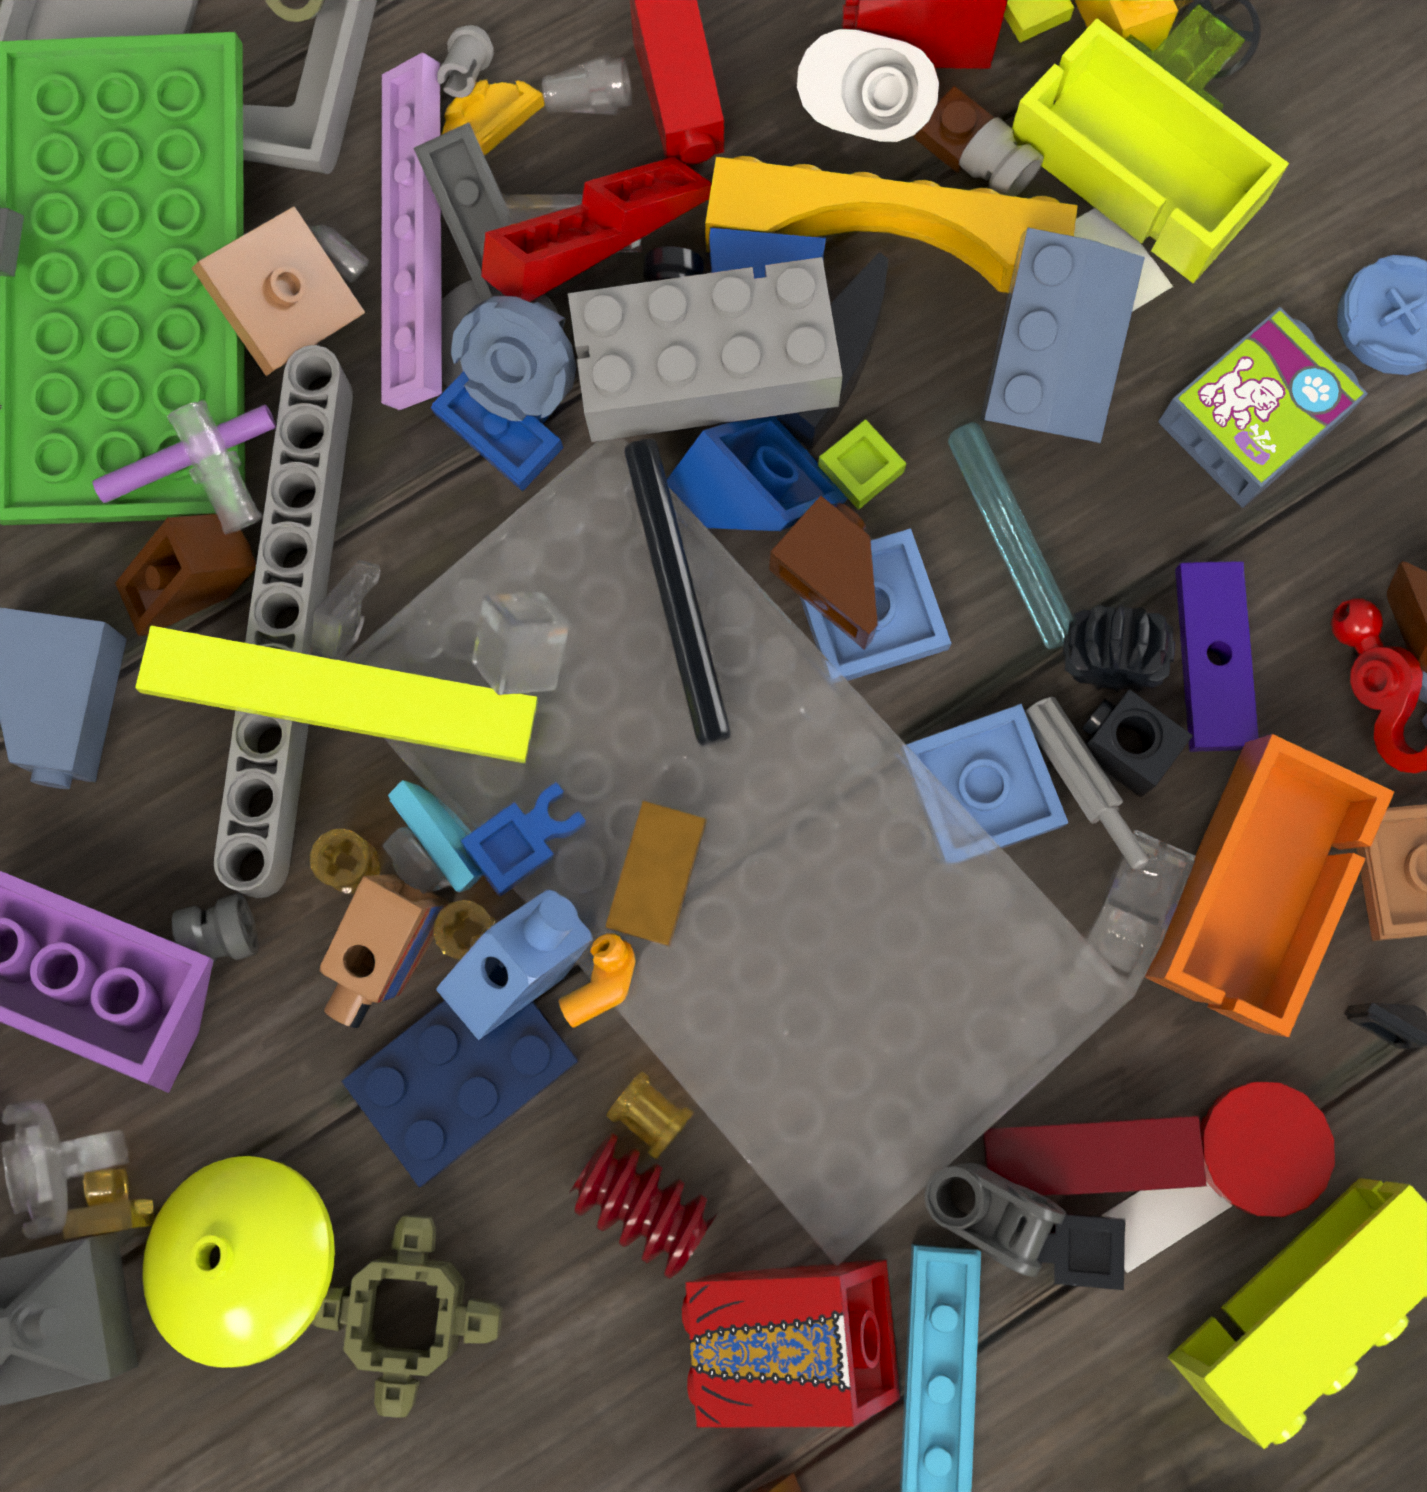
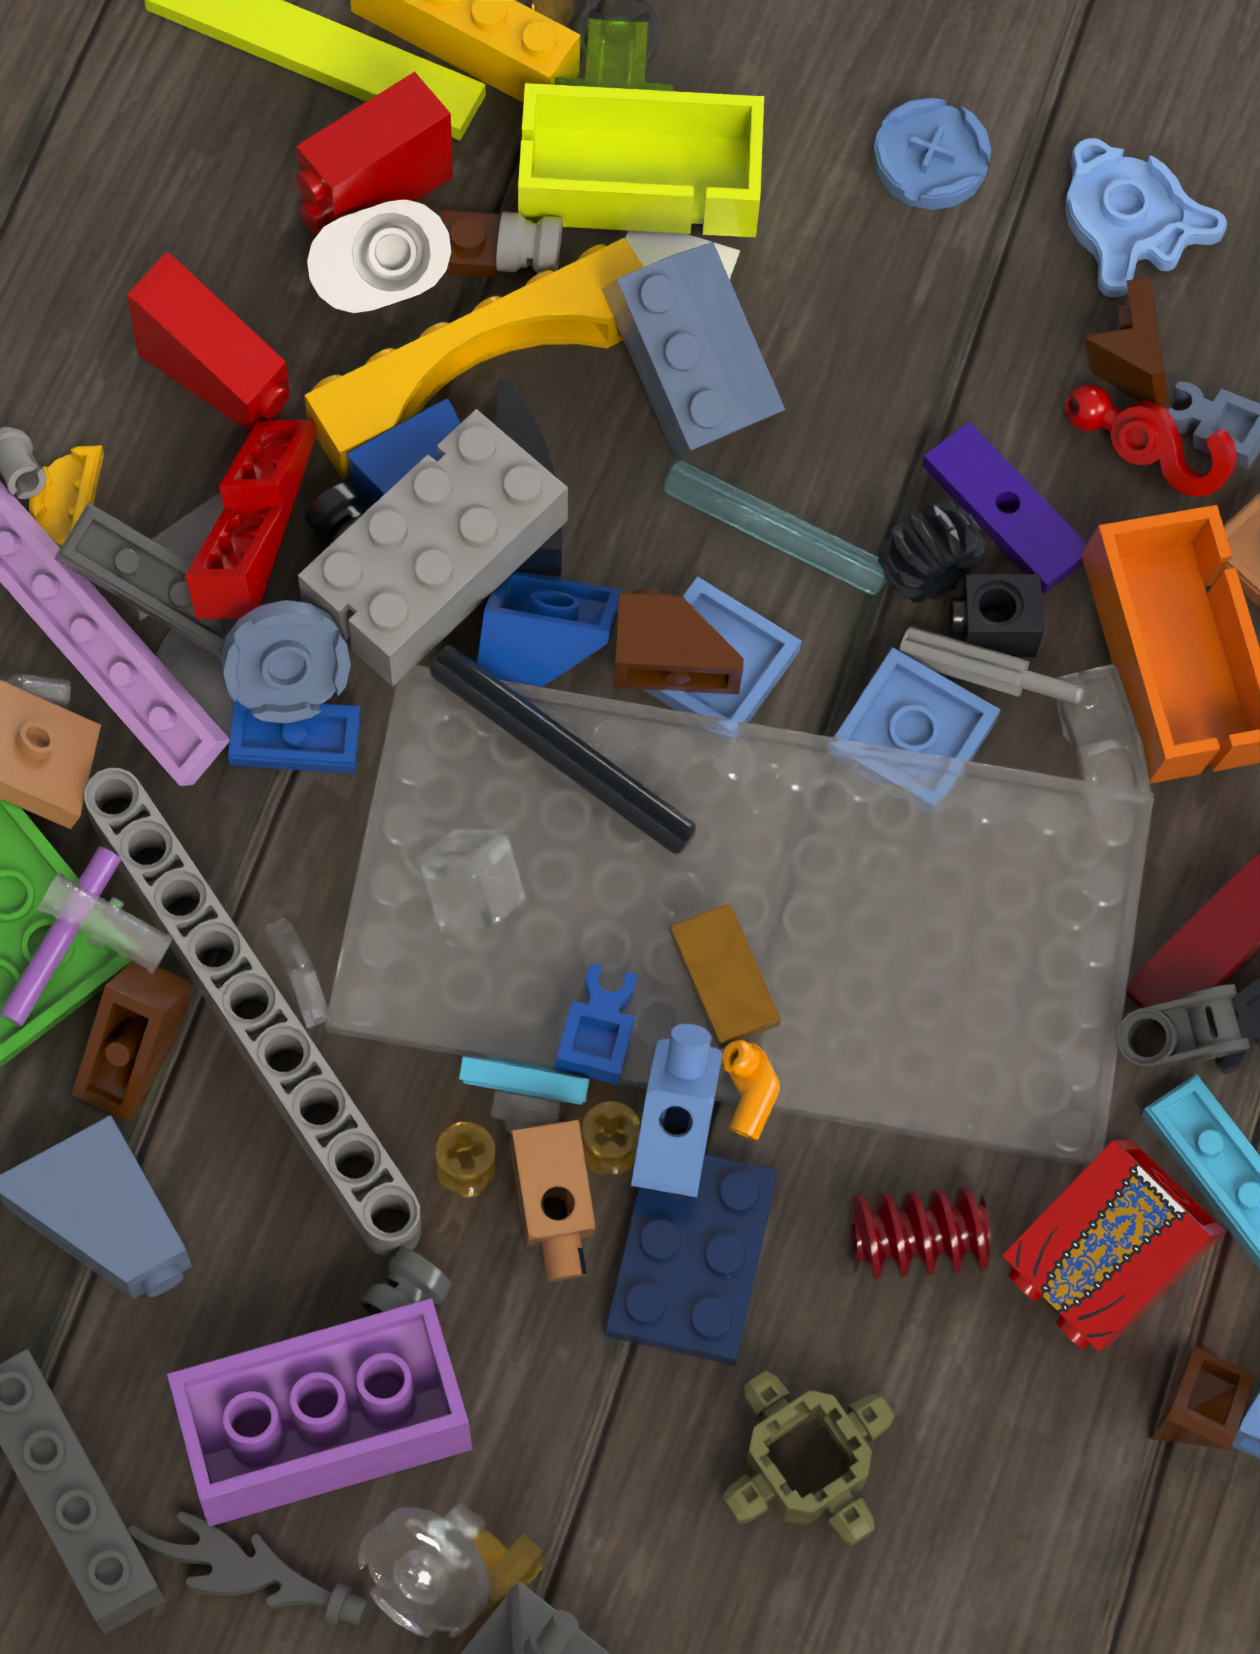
camera: 45 degrees left, 10 degrees down
(270, 1269) = (677, 1549): neon yellow dish -> none
(336, 694) = (357, 1026): neon yellow tile -> none
(590, 87) = (140, 412): clear cone -> none
(649, 1114) = (868, 1166): clear yellow bush -> none
(861, 464) = (615, 556): lime plate -> none
(1262, 406) = (887, 296): brick -> none

